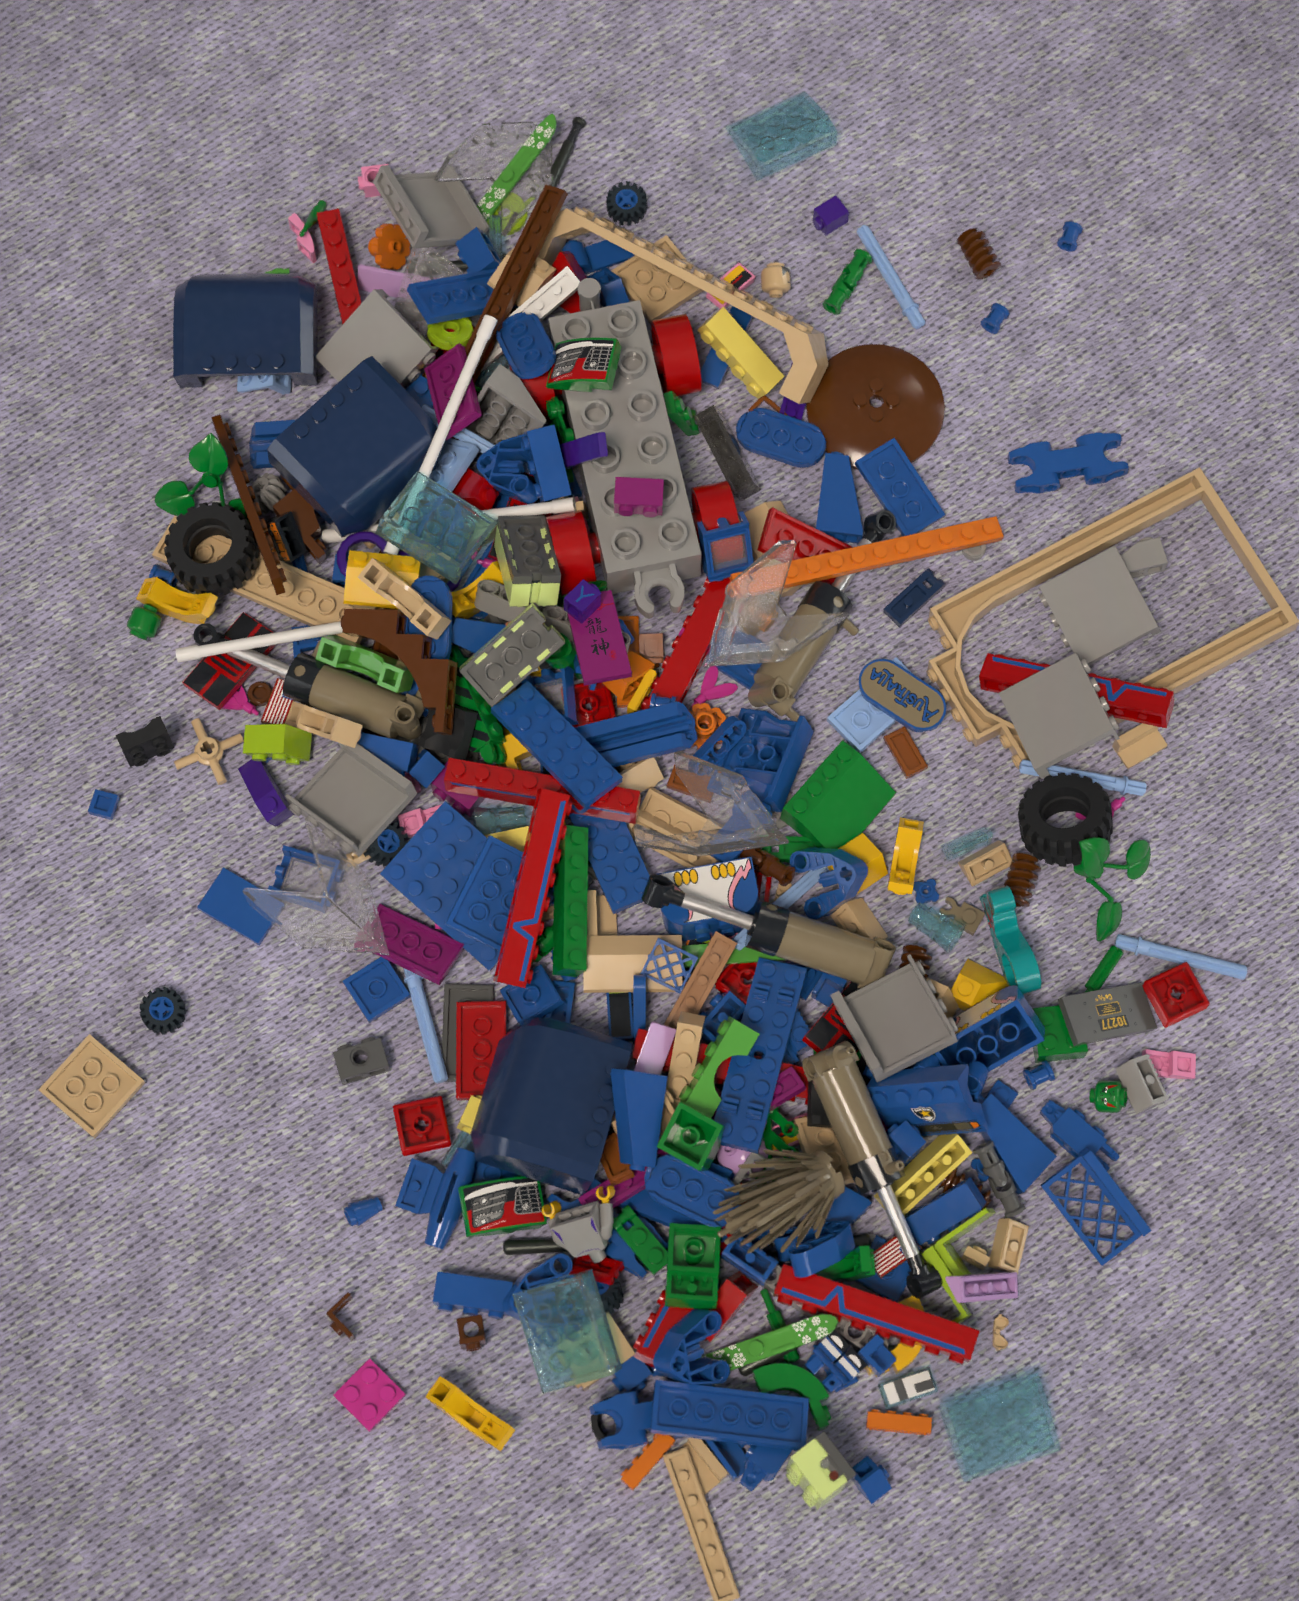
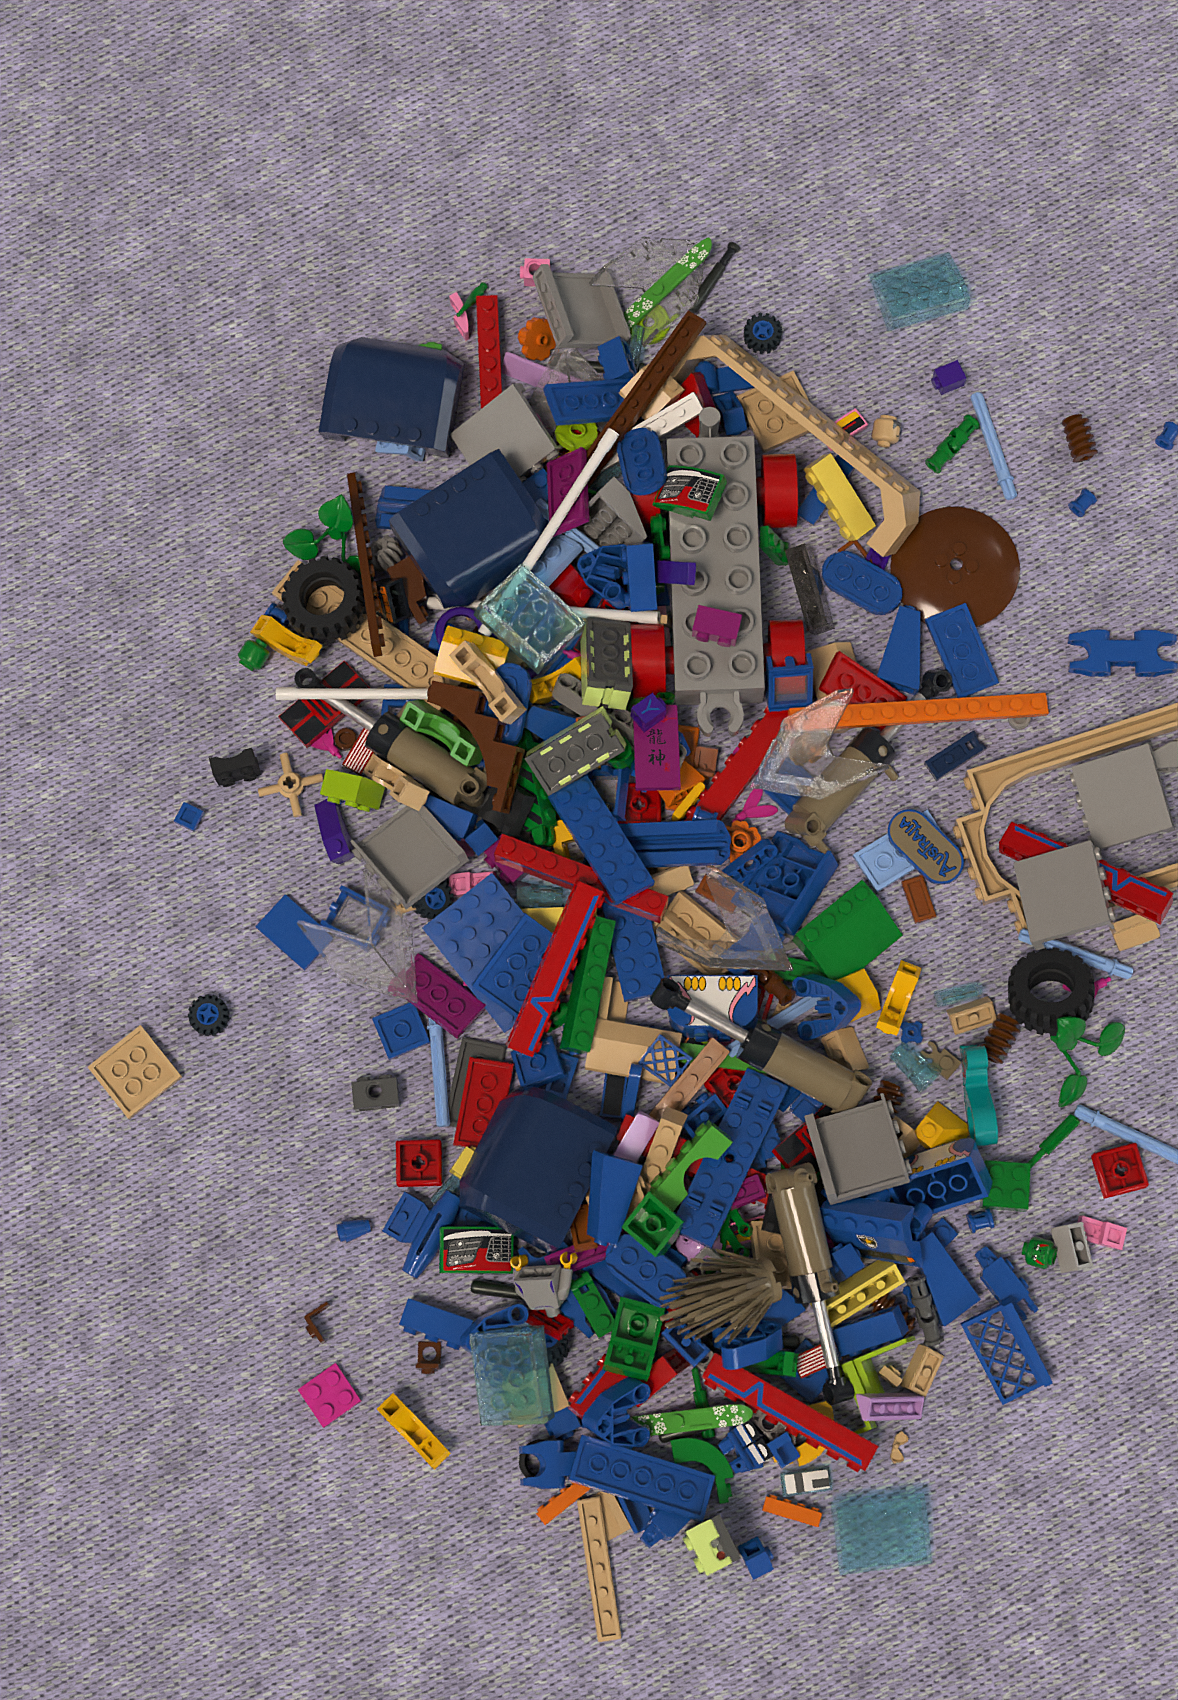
camera: 15 degrees right, 5 degrees up
(1107, 1014) = (1053, 1177): dark grey tile -> none

